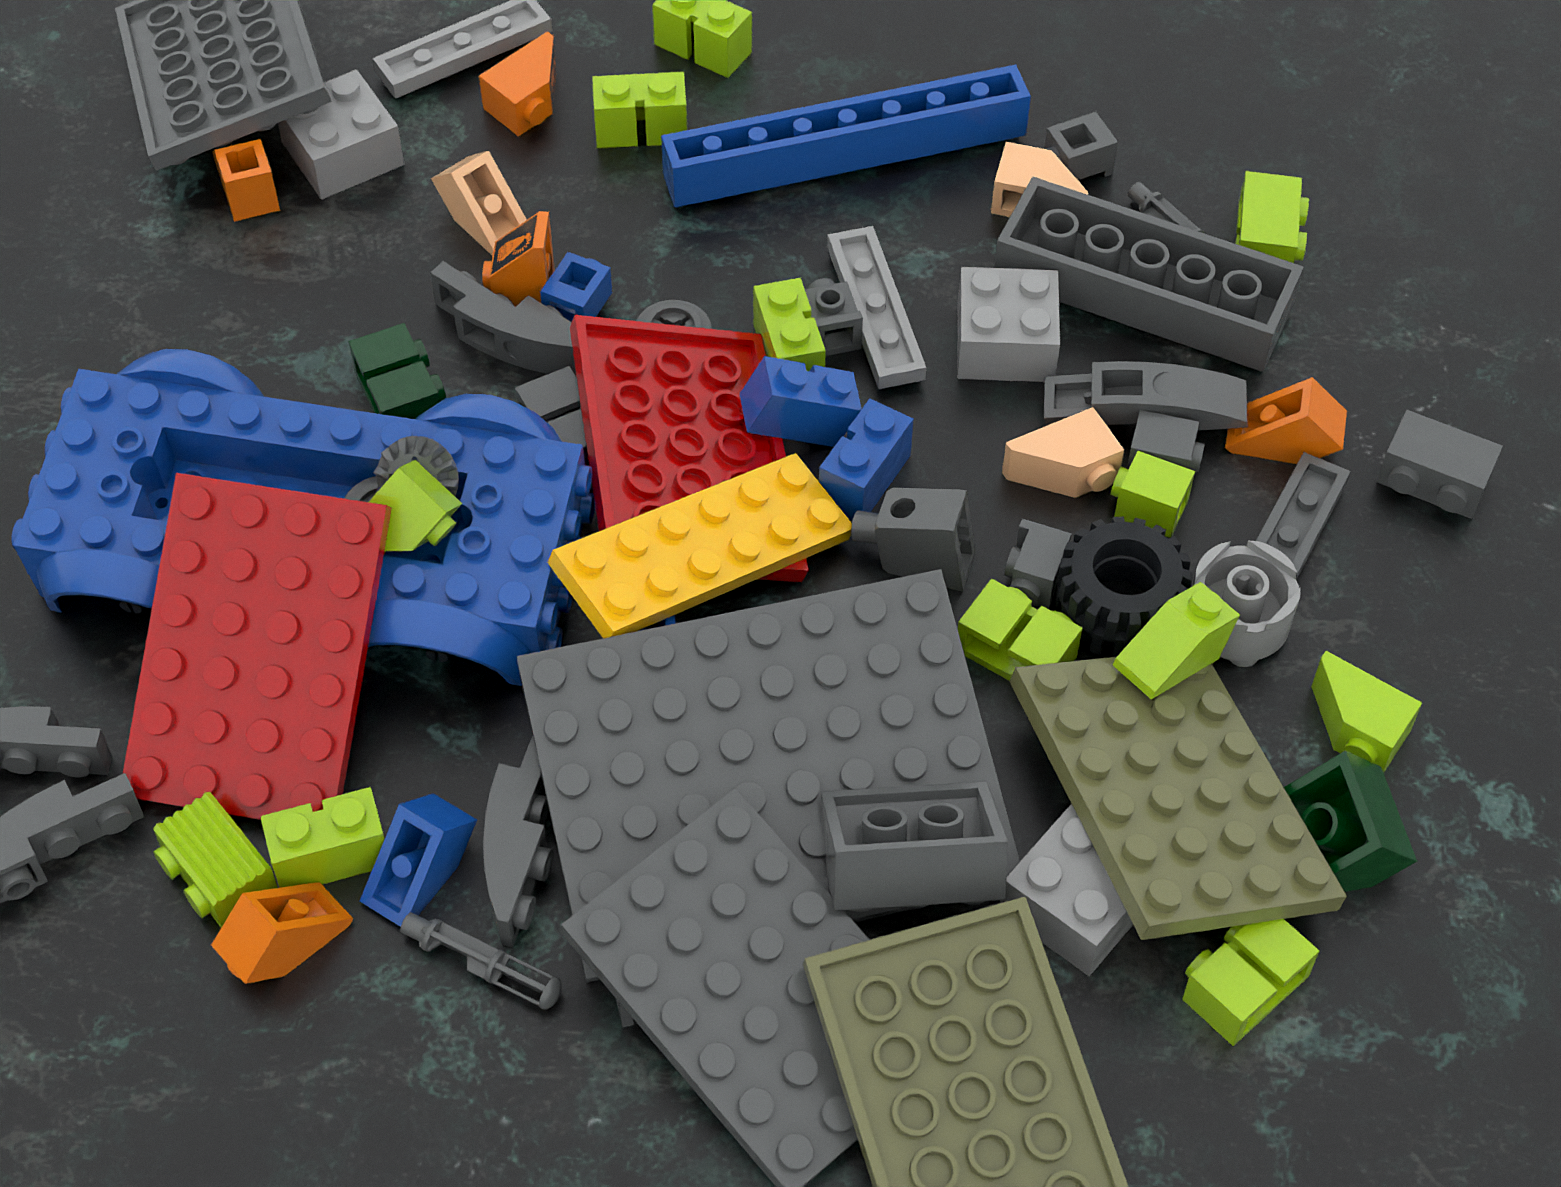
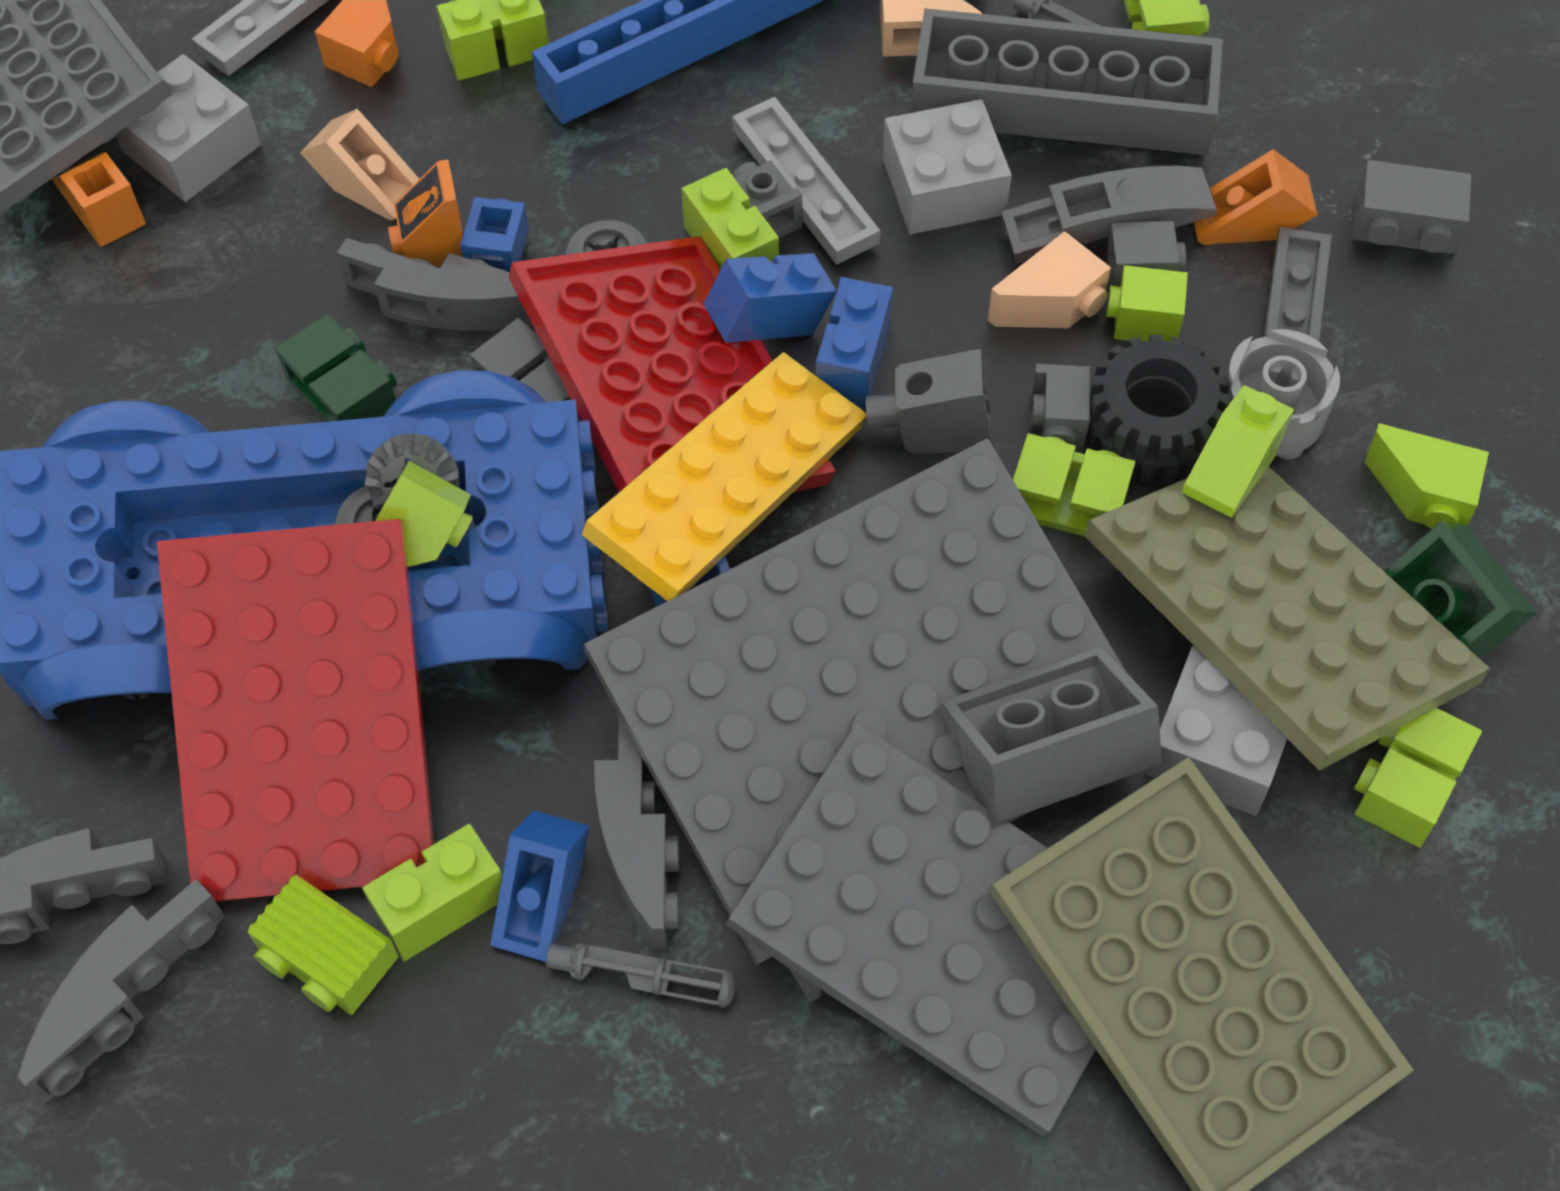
camera: 15 degrees left, 5 degrees up
(278, 930) = (418, 1003): orange slope -> none

